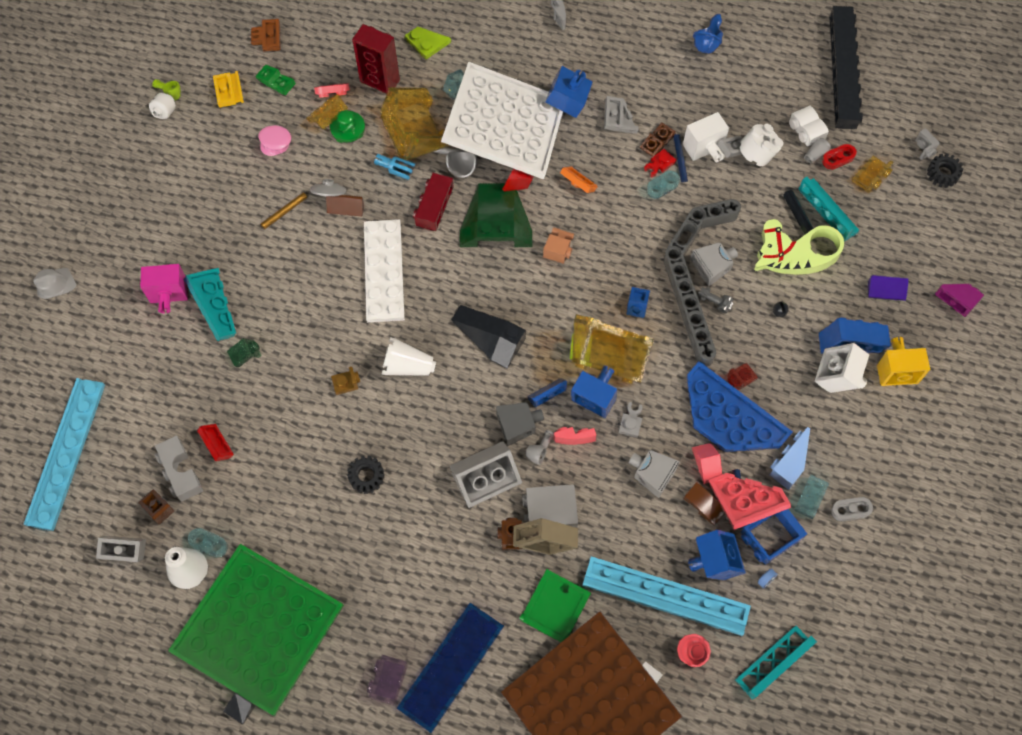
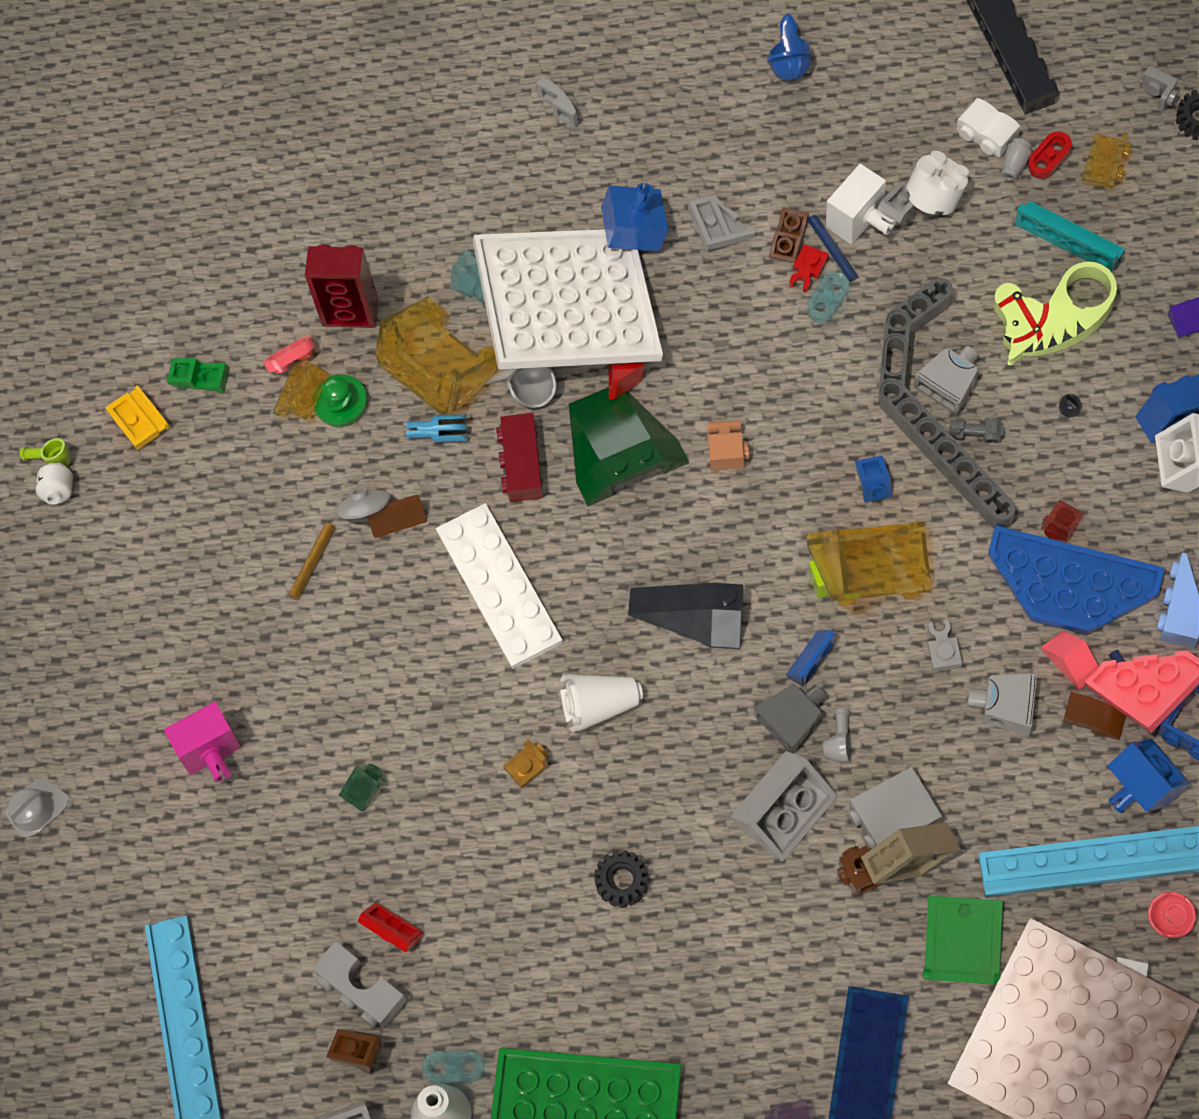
camera: 15 degrees left, 0 degrees up
(210, 298) = (275, 731): teal wing -> none
(267, 35) = (151, 313): dark orange hinge -> none
(274, 140) = (245, 464): bright pink piece -> none
(426, 41) = (388, 226): lime wing -> none
(567, 436) = (871, 705): coral slope -> none
(578, 180) = (707, 339): orange plate -> none
(595, 392) = (879, 630): blue brick -> none
(798, 211) = (1031, 258): black axle -> none

